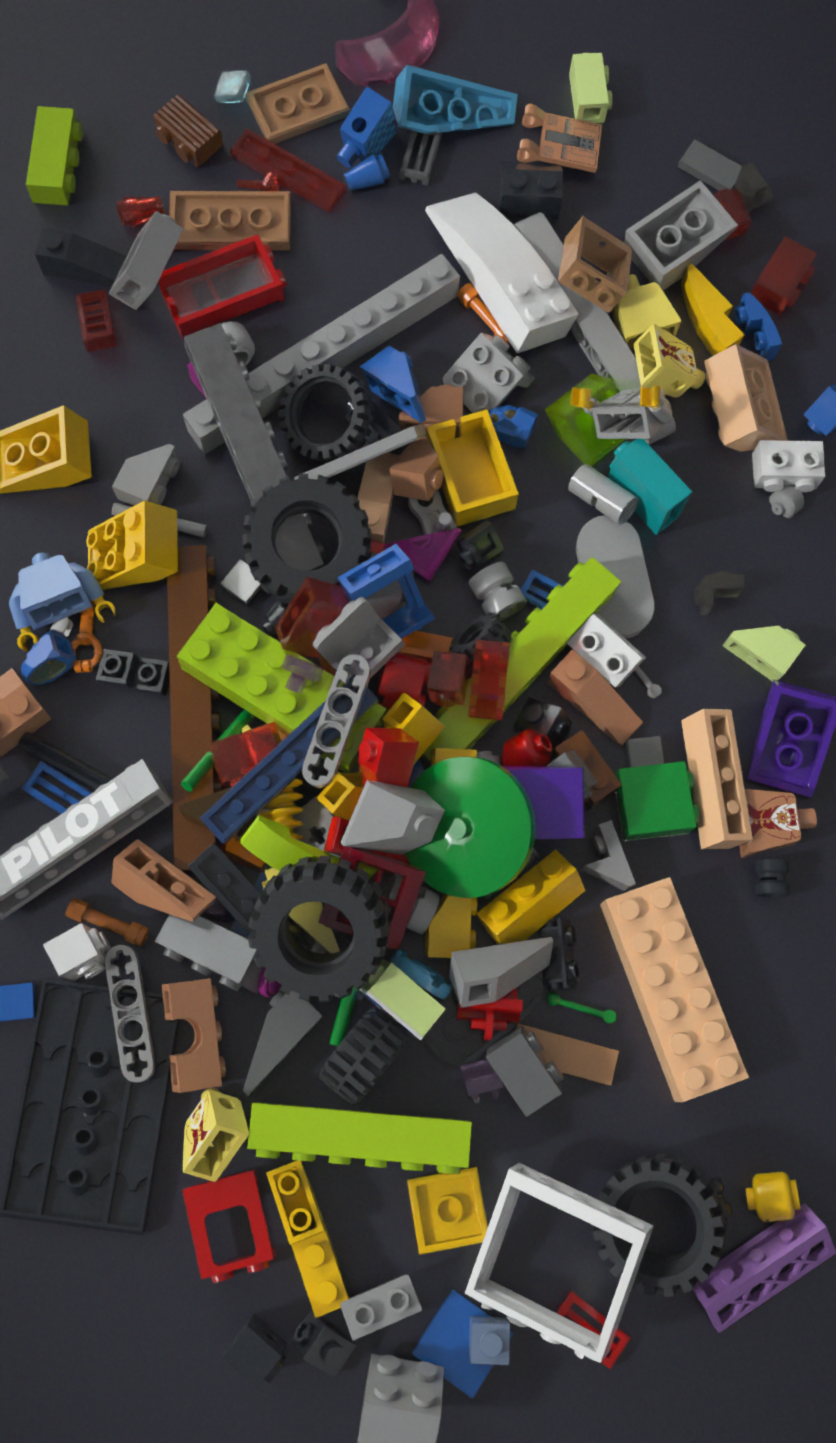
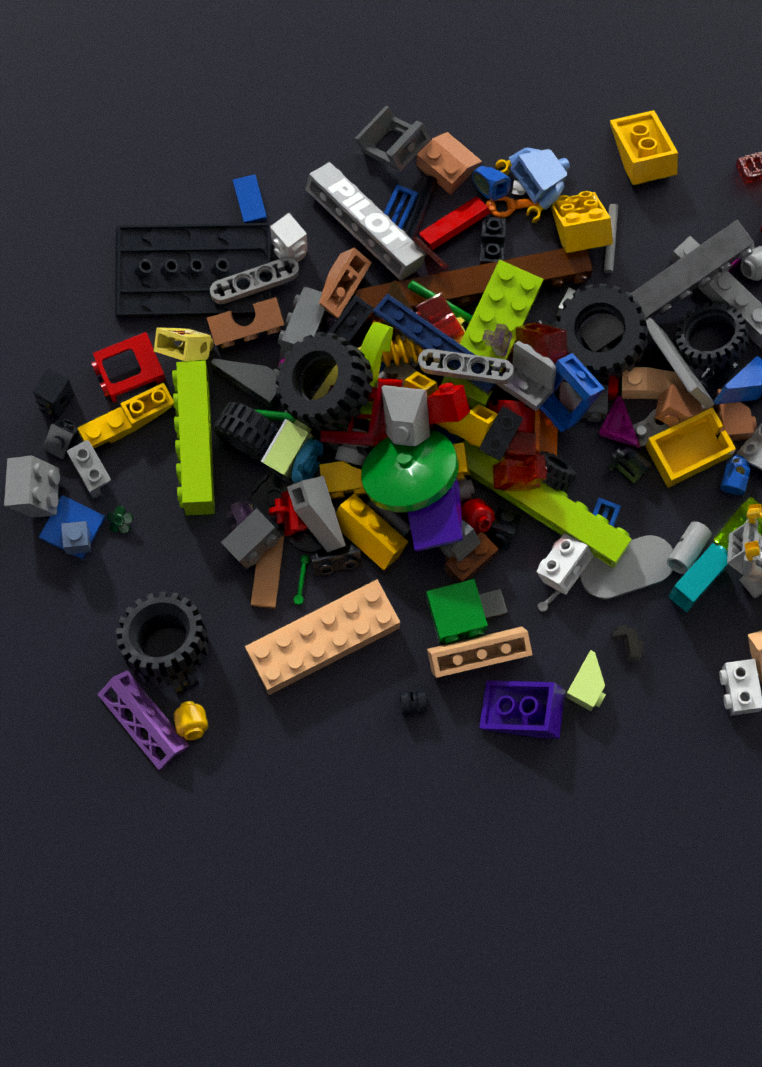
camera: 85 degrees right, 0 degrees up
(82, 911) = (309, 274): dark orange bar -> none
(97, 718) = (454, 223): none -> red tile
(139, 754) = (430, 252): none -> clear red piece
(146, 476) = (640, 222): light grey slope -> none
(432, 693) = (501, 433): none -> black hinge
(447, 1210) = (154, 507): yellow tile -> none
(461, 1266) = (120, 520): none -> dark green plant
(496, 589) = (594, 482): light grey wheel -> none
(525, 1312) = (111, 530): white window -> none
(564, 1309) = (80, 627): red tile -> none
(594, 697) = (527, 561): nougat slope -> none
(614, 867) = (404, 588): light grey slope -> none
(774, 821) = (455, 696): nougat torso -> none
(787, 501) = (714, 693): light grey piece -> none

